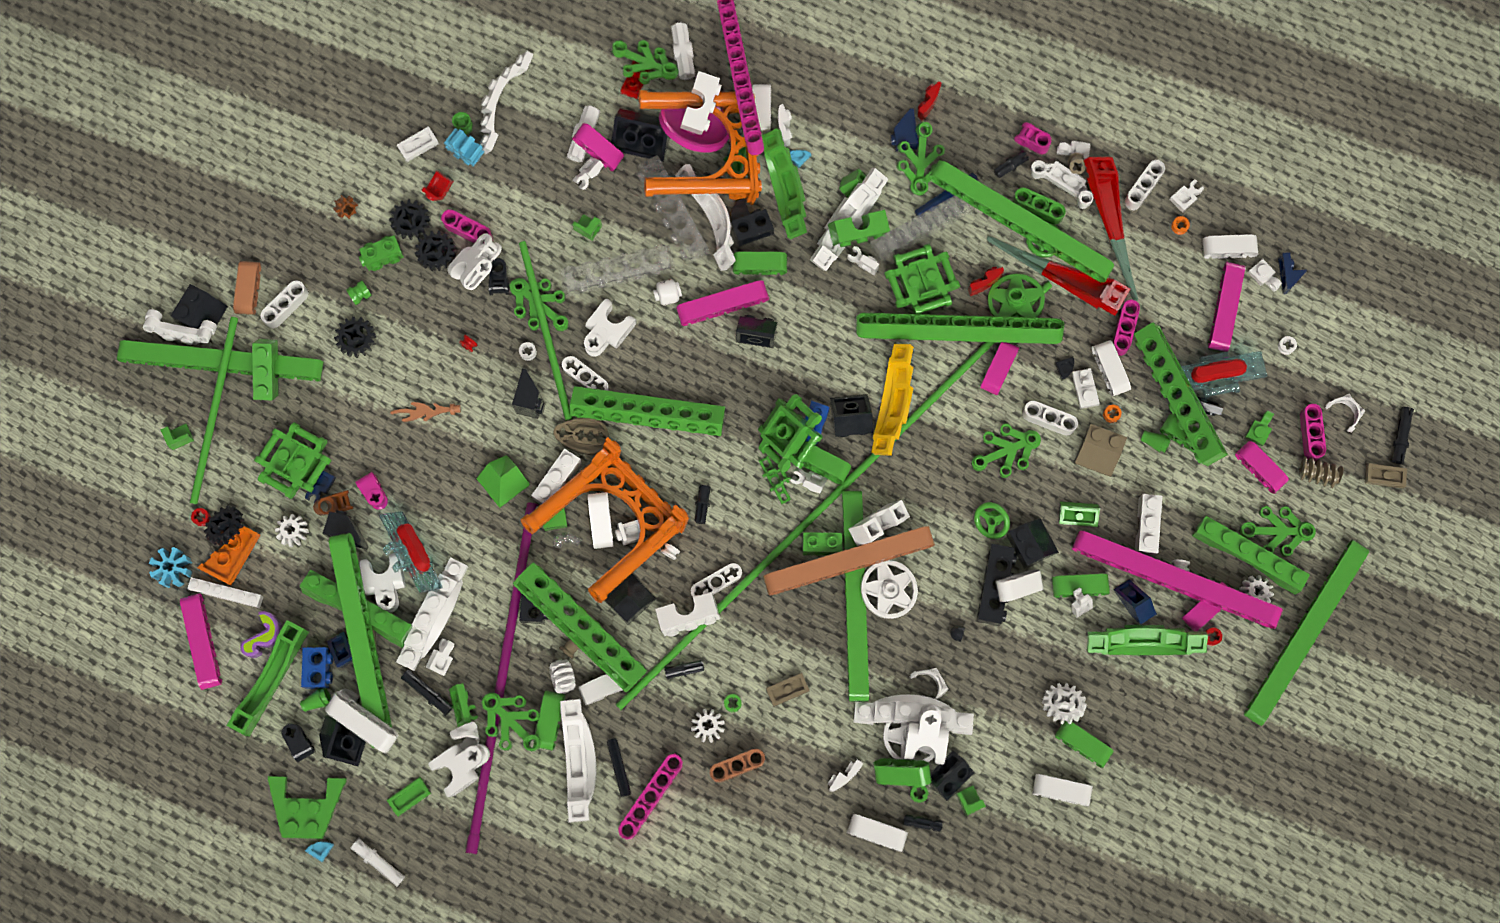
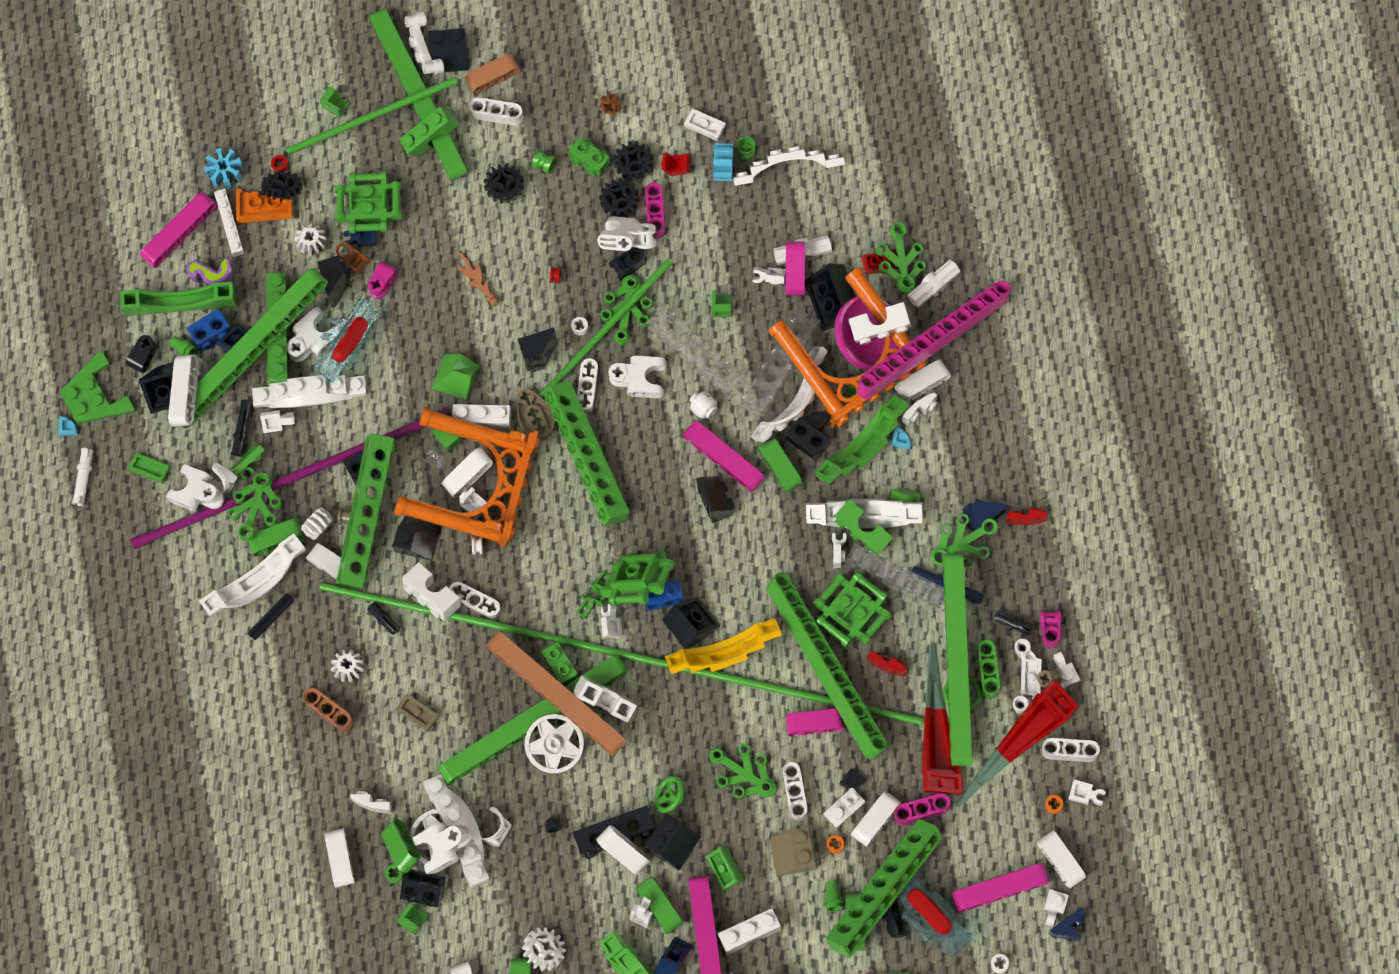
camera: 65 degrees right, 5 degrees down
(641, 801) = (252, 652): dark pink beam -> none
(702, 504) = (534, 547): black axle -> none
(726, 703) = (381, 680): bright green bush -> none
(826, 464) = (632, 626): bright green beam -> none
(923, 823) = (370, 891): black axle -> none
(1016, 298) = (889, 700): bright green wheel -> none

